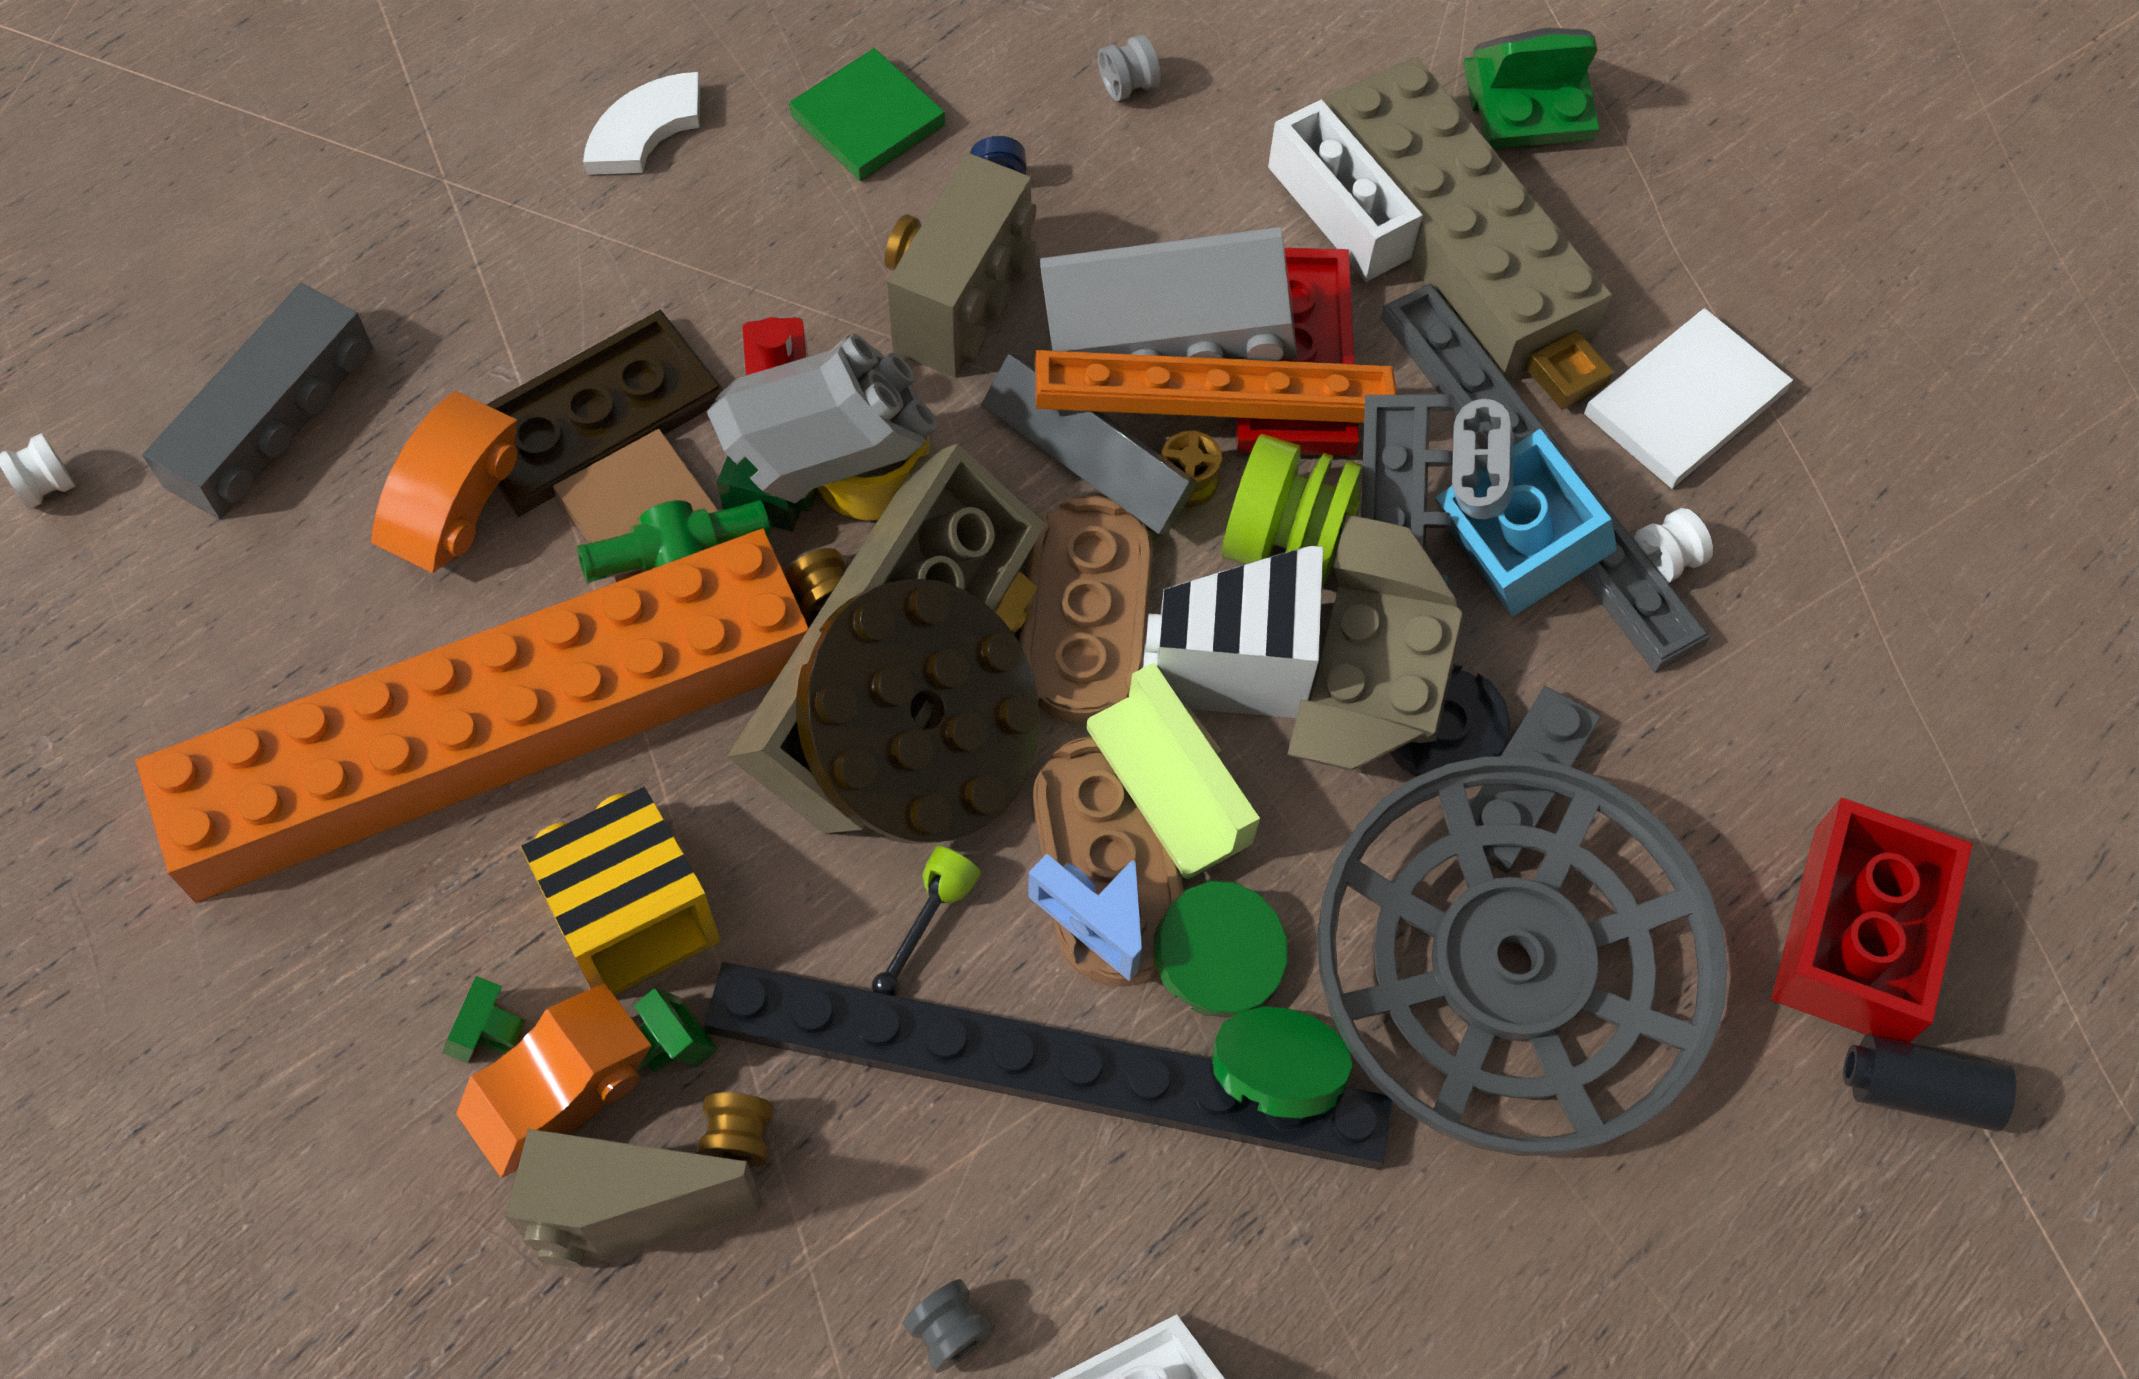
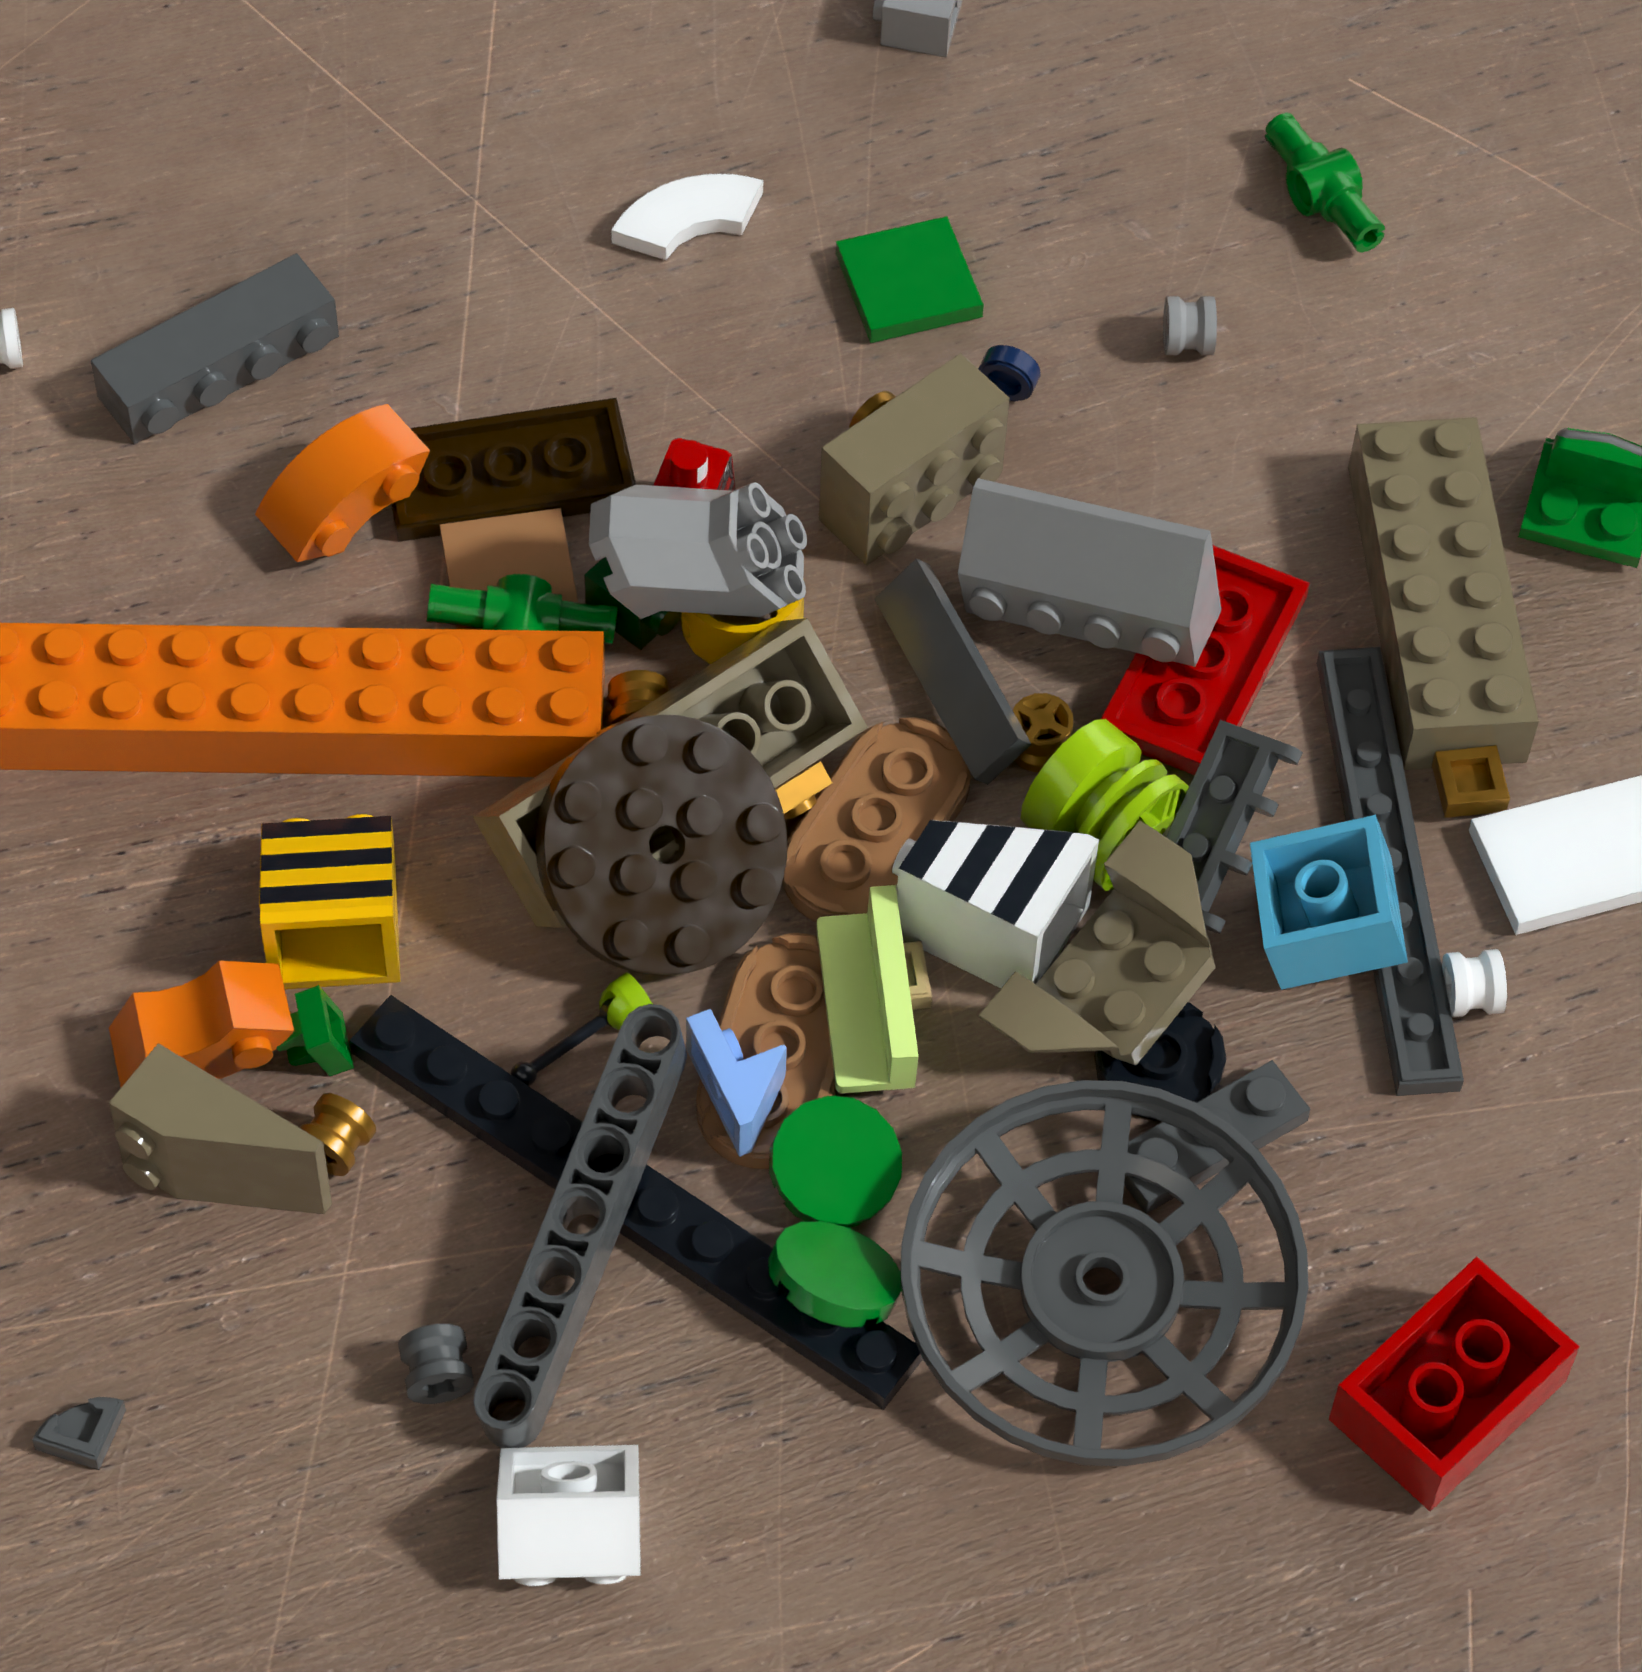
camera: 25 degrees right, 5 degrees down
(482, 1023) = (161, 958): green tile -> none
(1016, 1086) = (585, 1254): none -> dark grey beam
(1207, 386) = (1087, 658): orange tile -> none
(1344, 190) = (1333, 524): white brick -> none
(1469, 458) = (1313, 825): light grey beam -> none
(1931, 1082) = (1430, 1543): black brick -> none

